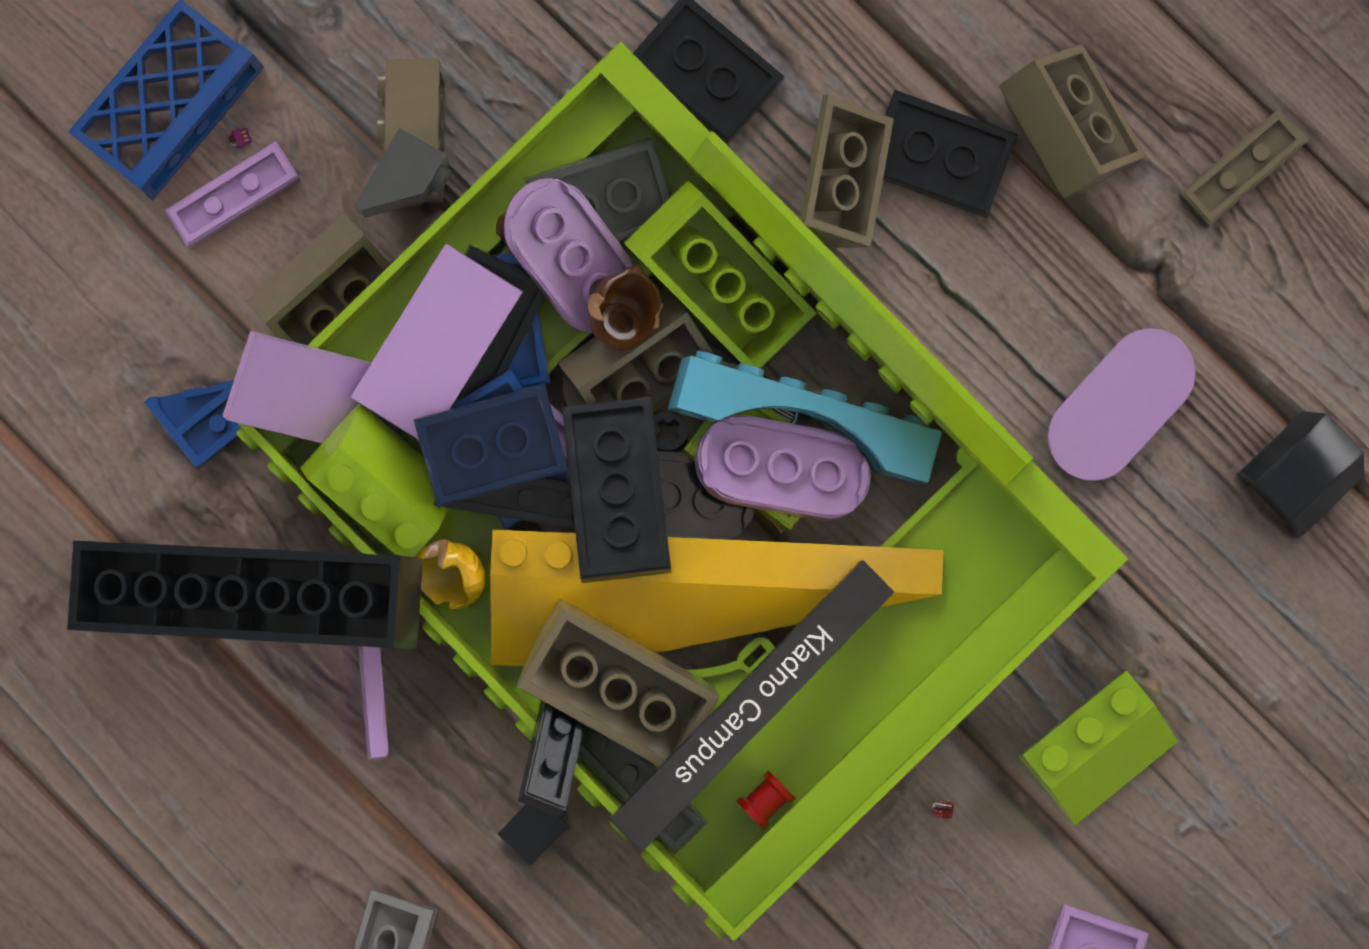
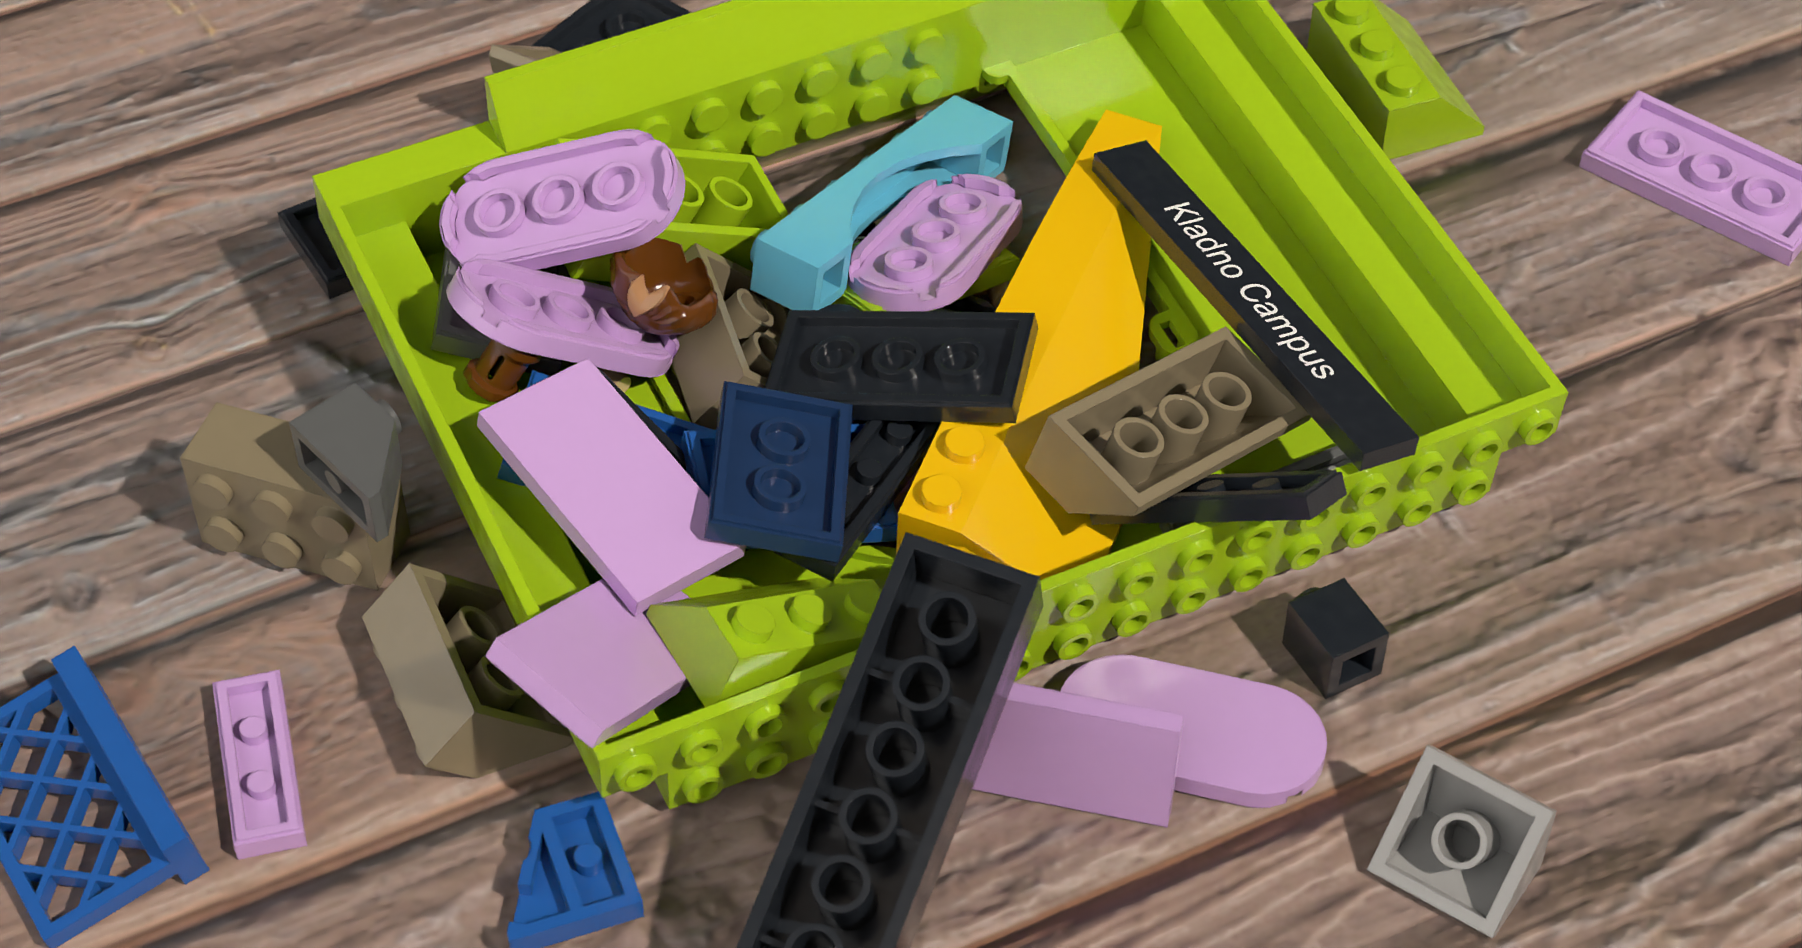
camera: 75 degrees left, 35 degrees down
(241, 137) = (180, 735): magenta piece -> none
(439, 756) = (1238, 735): none -> lavender tile
(646, 222) = (565, 201): none -> lavender tile
(765, 799) = (1373, 354): red bush -> none

